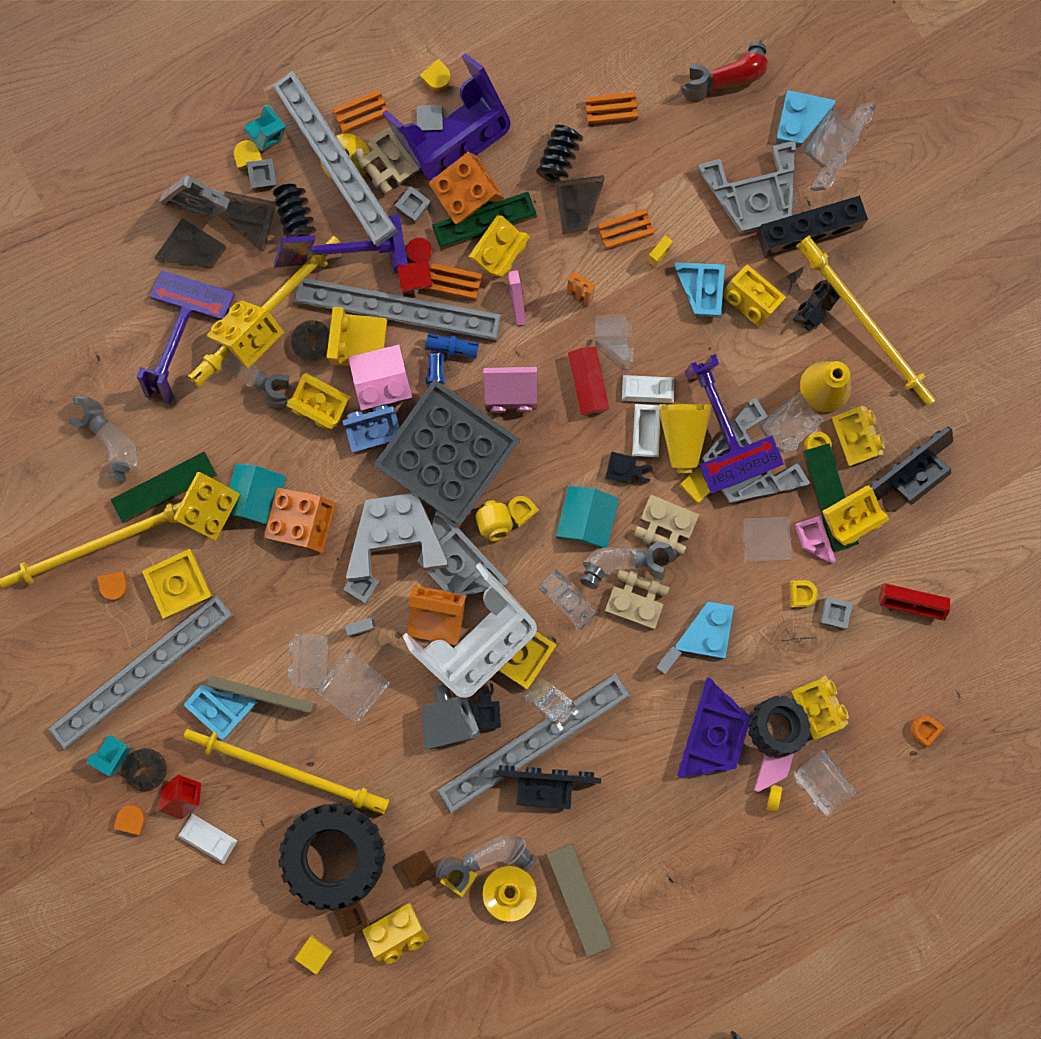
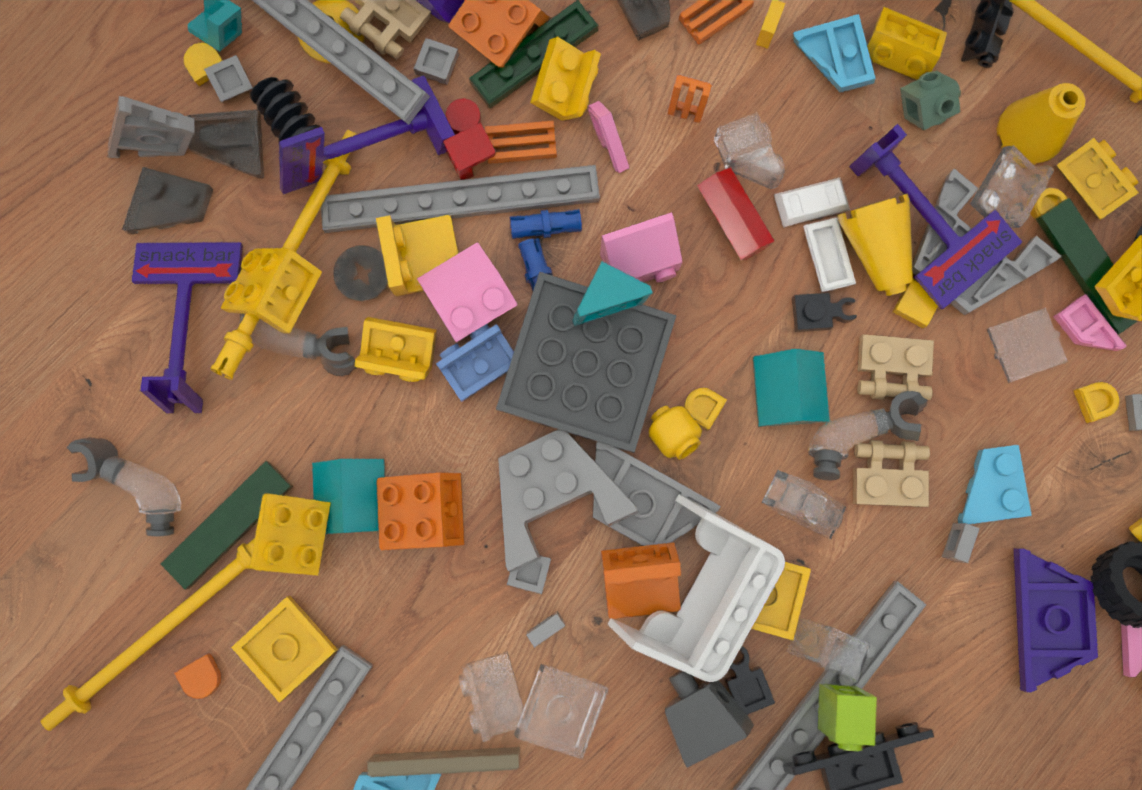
camera: 20 degrees left, 0 degrees up
(473, 410) = (609, 294): none -> teal slope
(543, 747) = (847, 716): none -> lime brick
(755, 342) = (930, 99): none -> sand green brick

